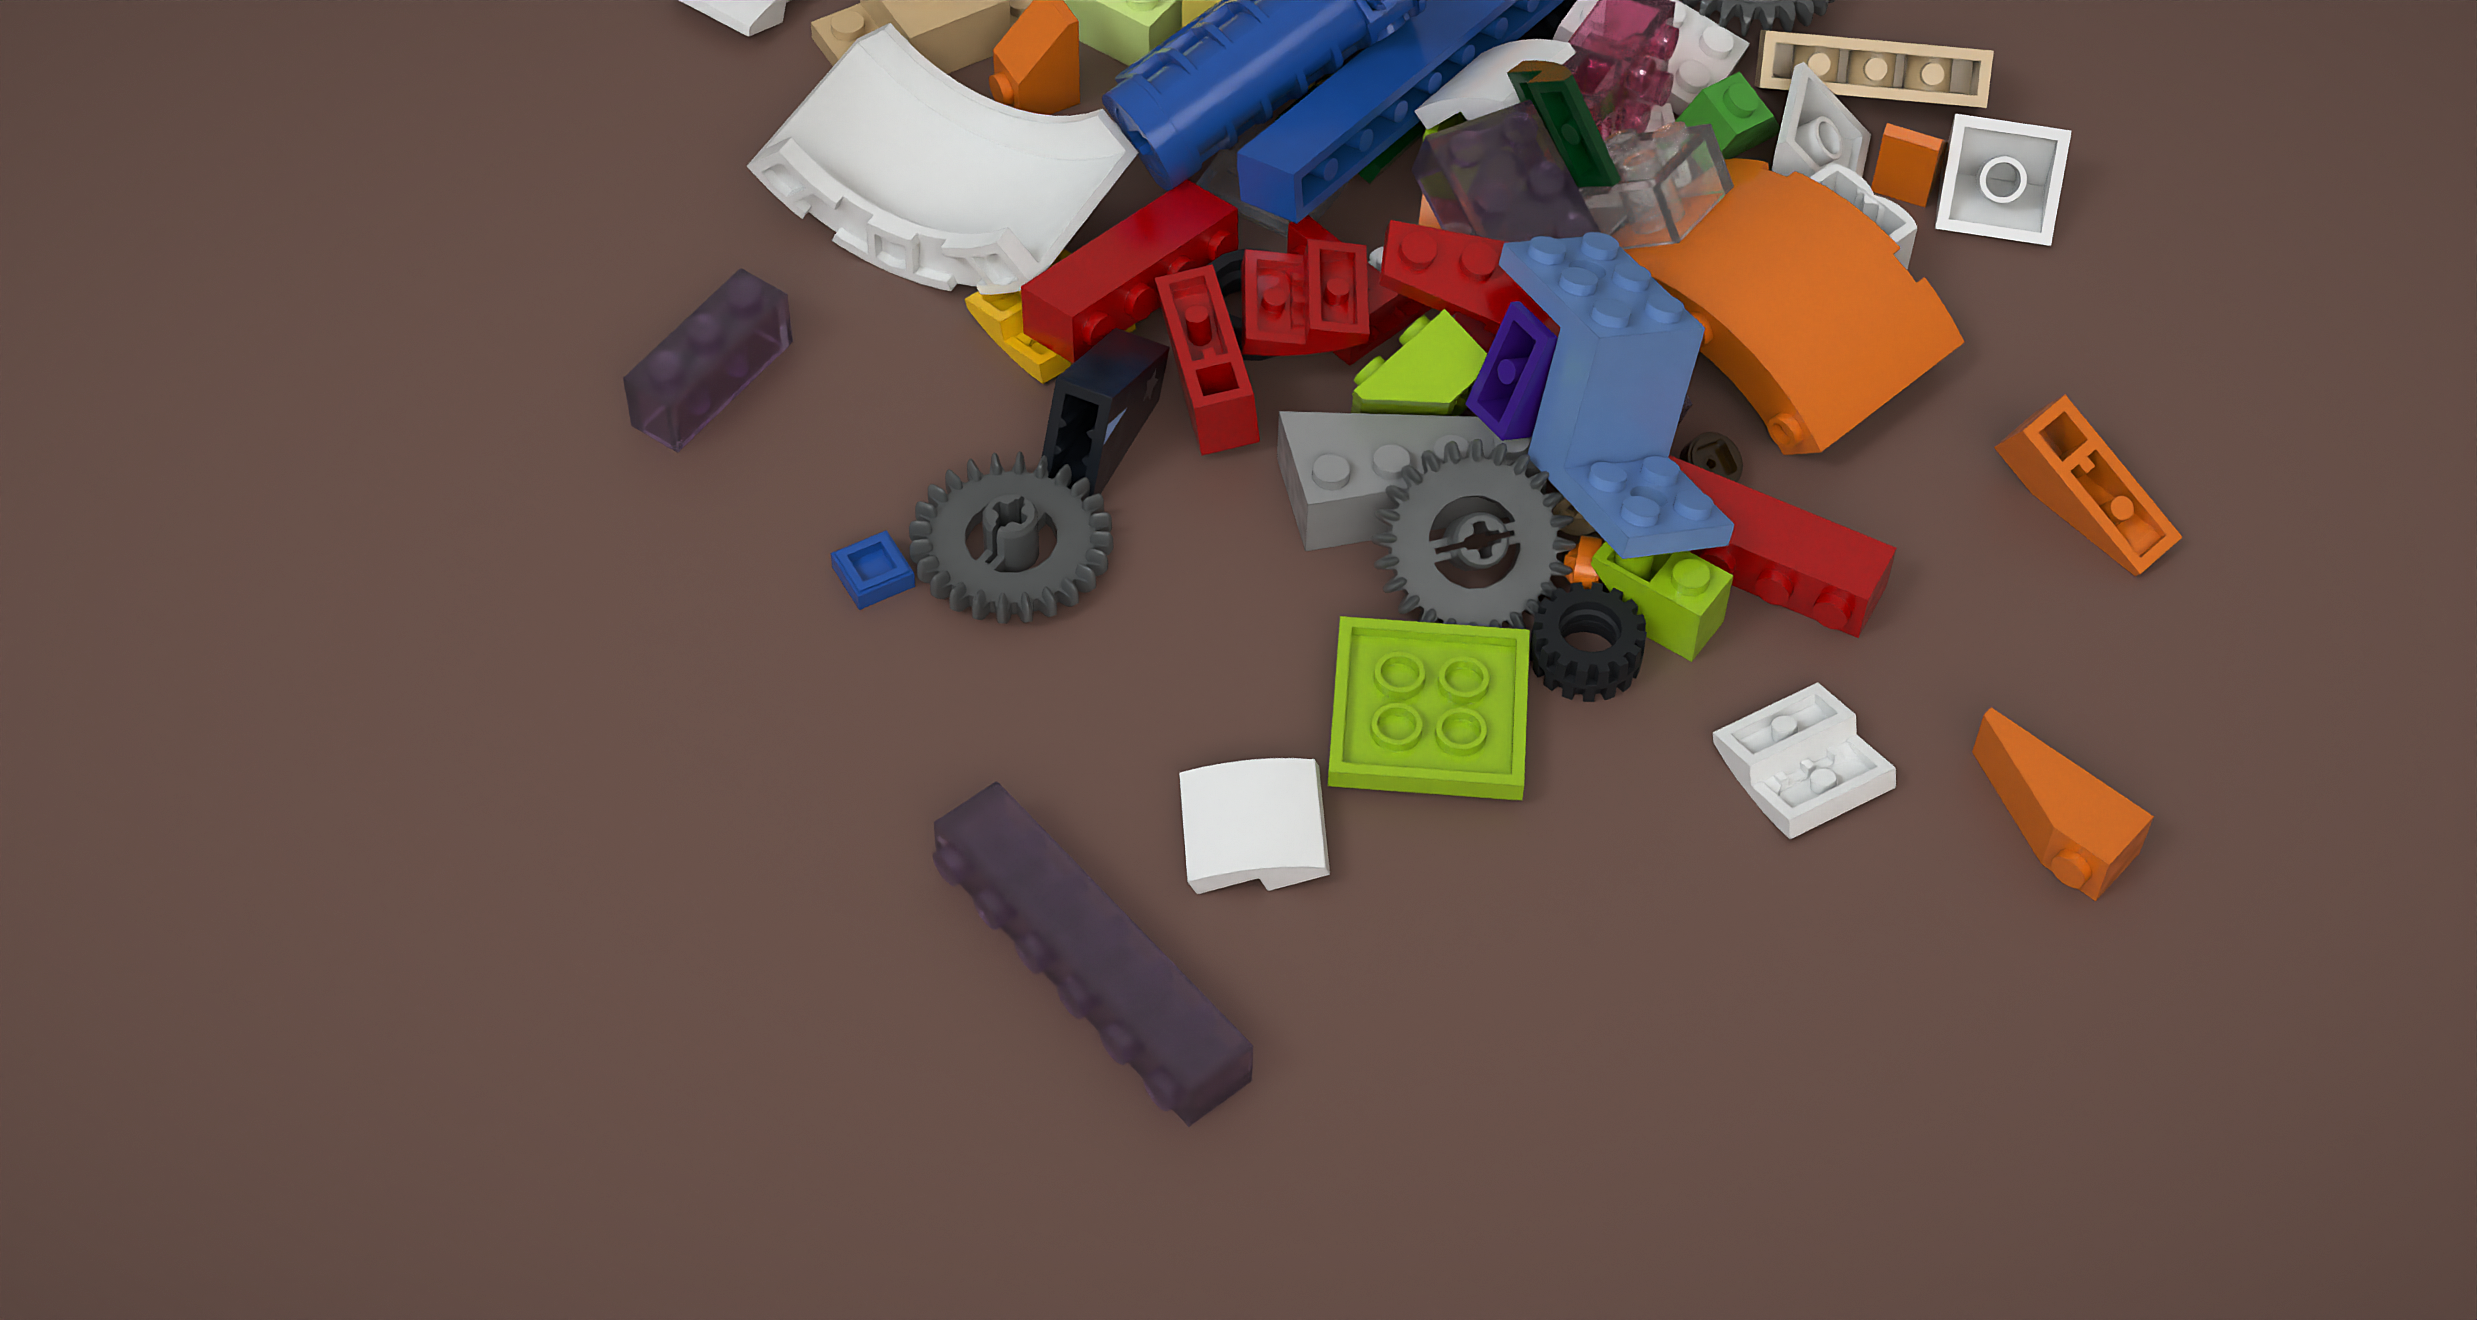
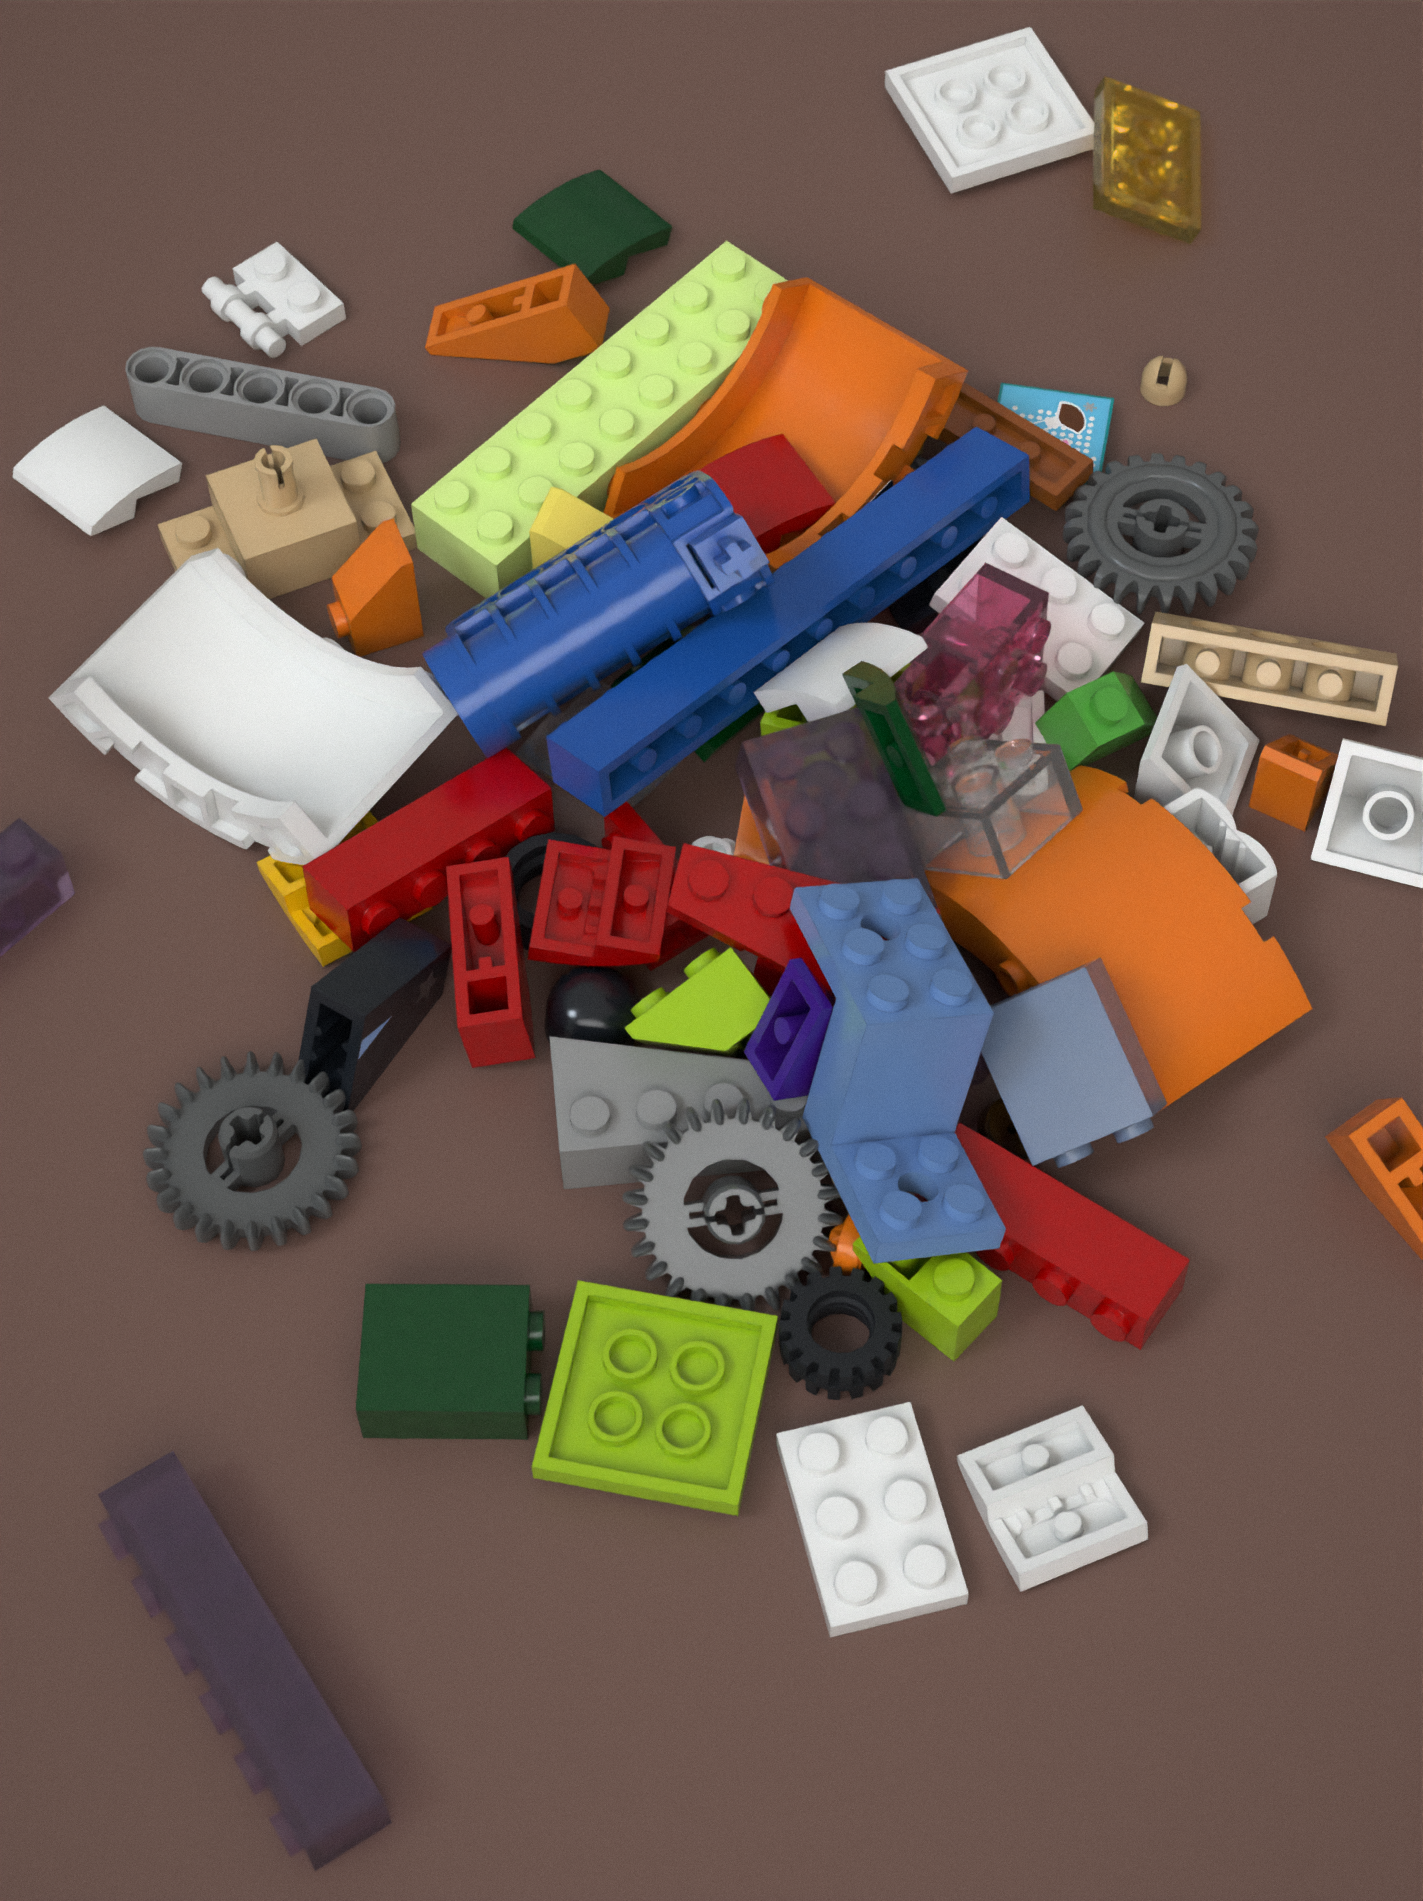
camera: 10 degrees right, 5 degrees up
(872, 569) = (104, 1172): blue tile -> none
(1233, 693) = (449, 1361): none -> dark green brick
(1254, 823) = (444, 1518): white slope -> none
(1304, 387) = (591, 1006): none -> black hair
(1643, 792) = (871, 1519): none -> white plate
(1765, 391) = (1070, 1066): none -> sand blue brick
(2063, 811) = (1329, 1602): orange slope -> none

